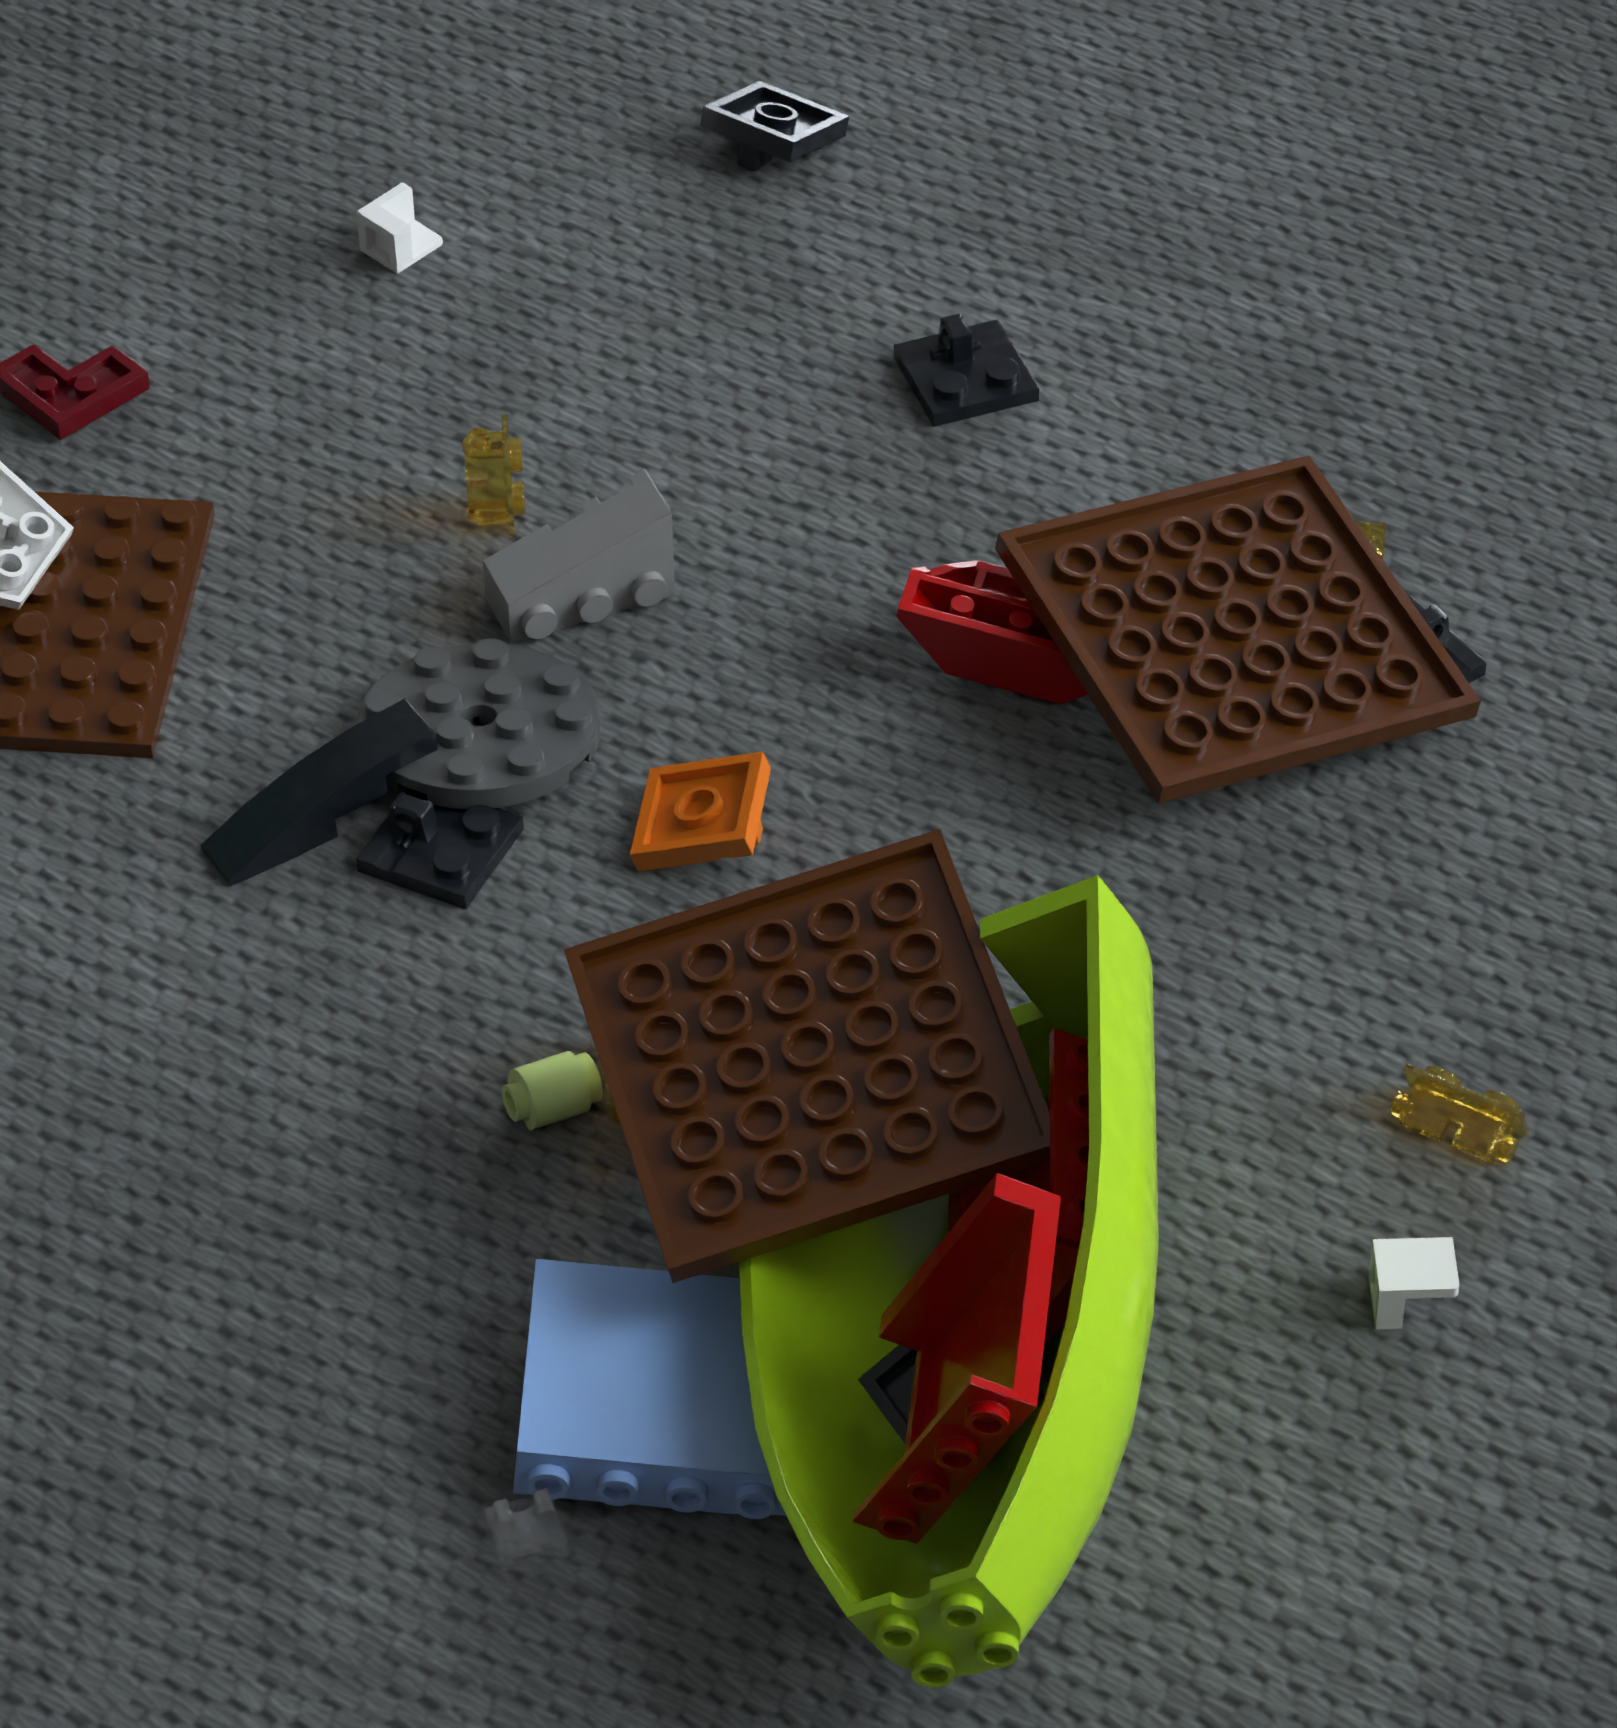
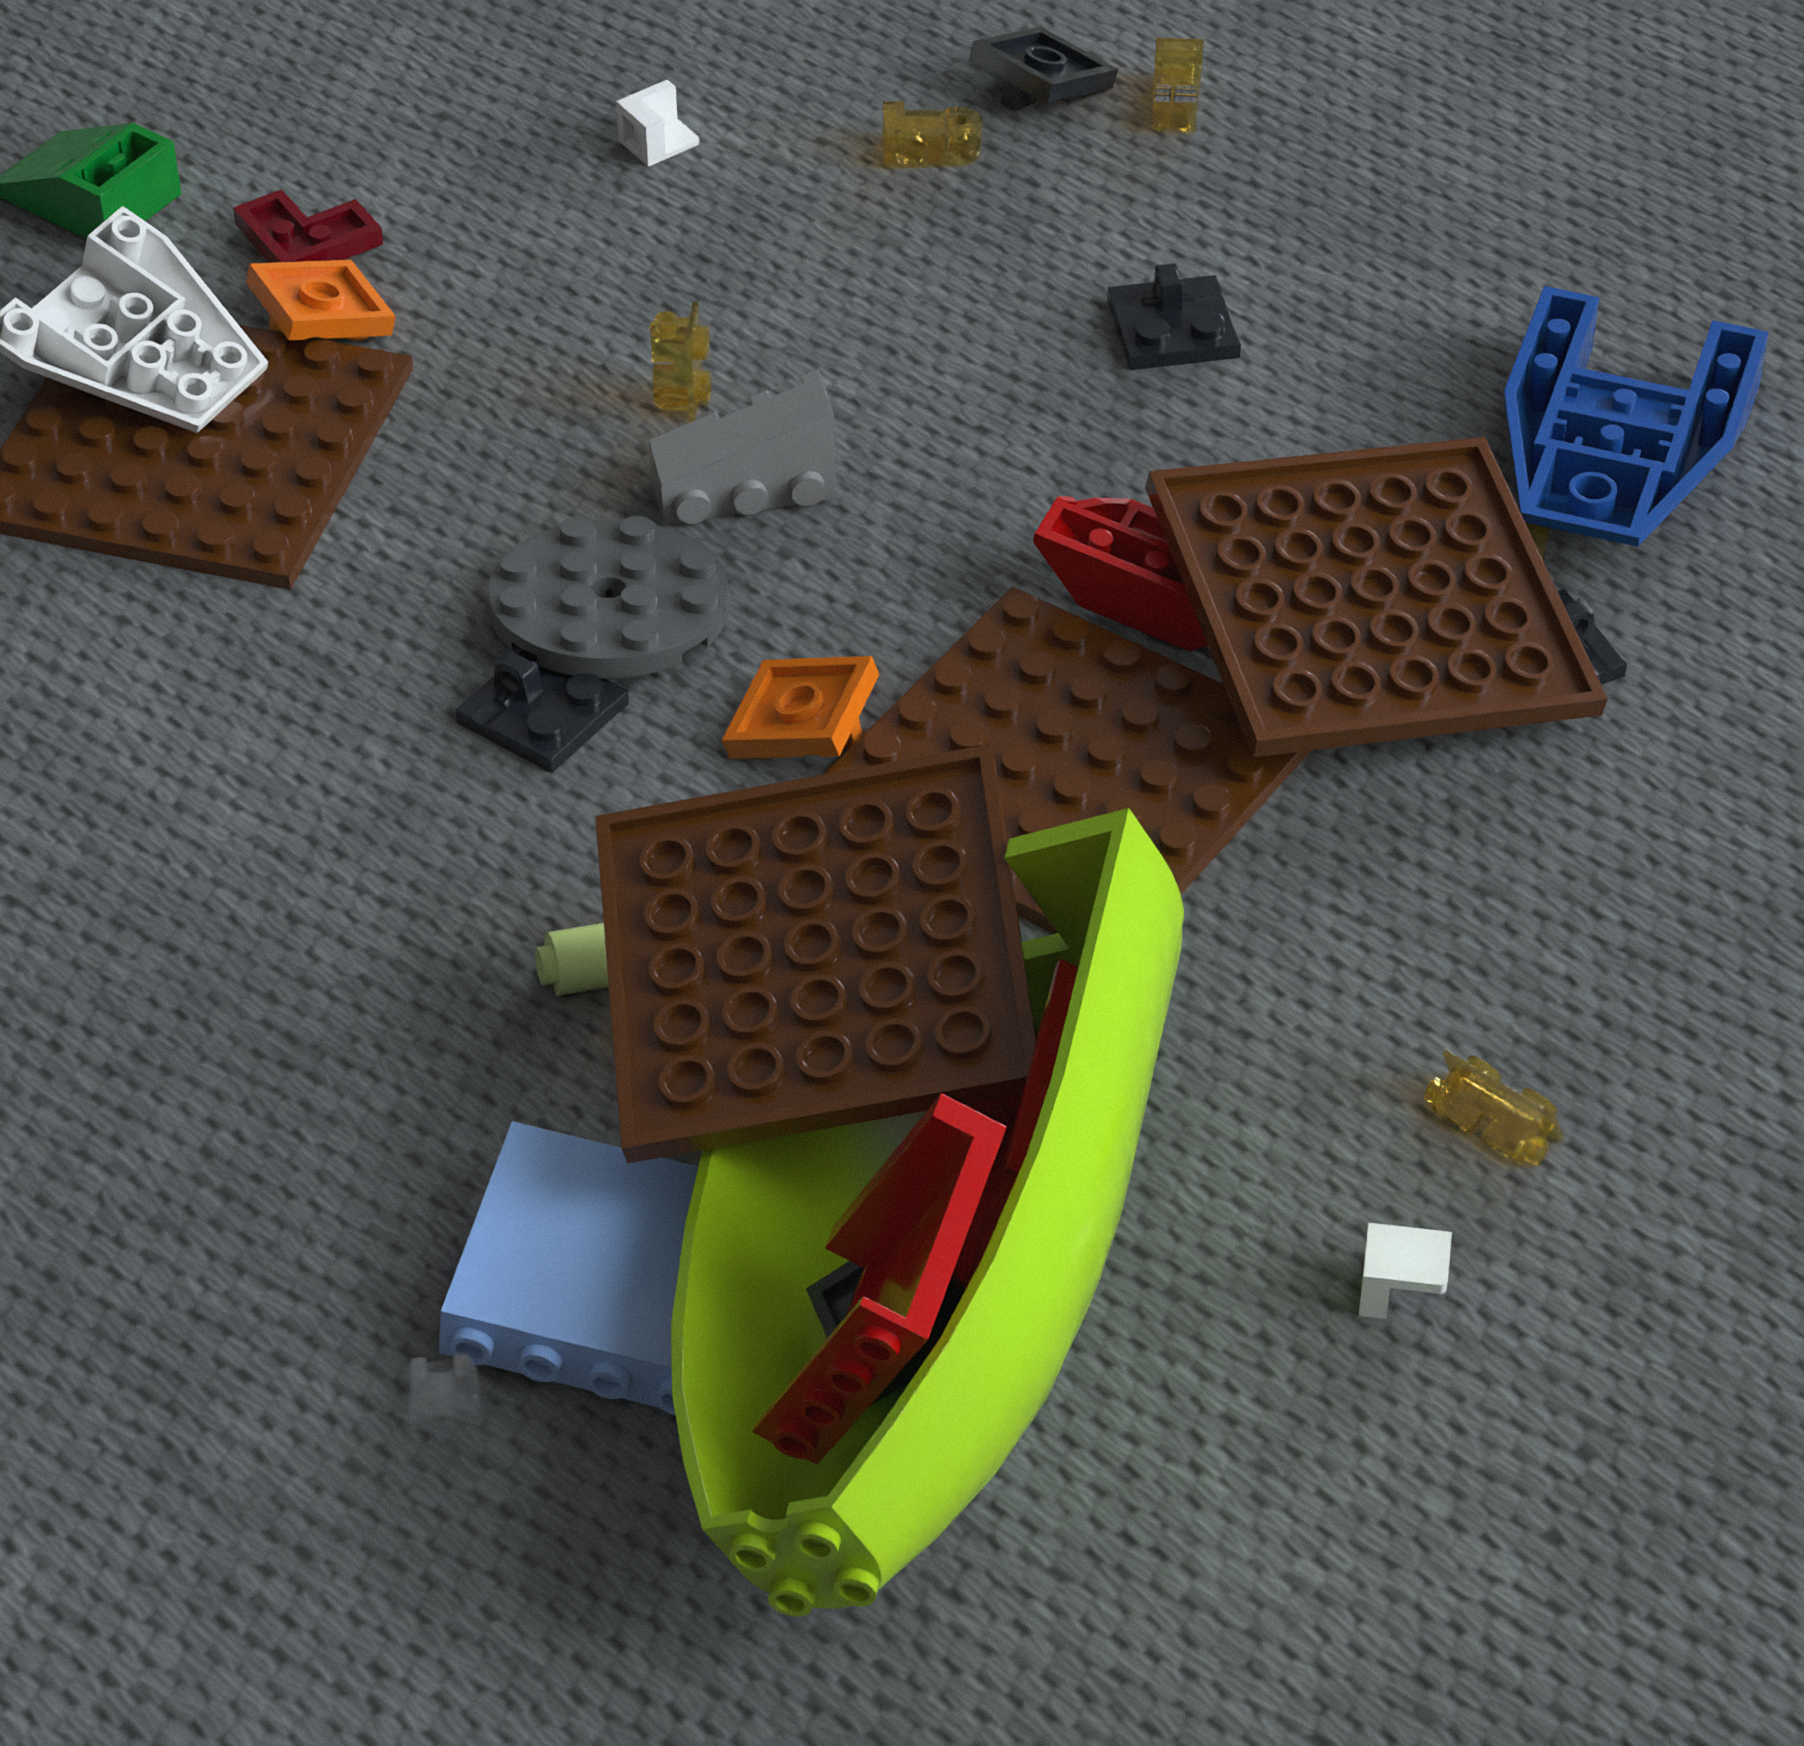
camera: 10 degrees right, 0 degrees up
(106, 456) = (320, 300): none -> orange hinge
(302, 803) = (415, 650): black slope -> none
(677, 209) = (929, 136): none -> clear yellow leg
(911, 125) = (1177, 83): none -> clear yellow leg
(1010, 788) = (1084, 732): none -> reddish brown plate
(1428, 451) = (1612, 449): none -> blue wedge

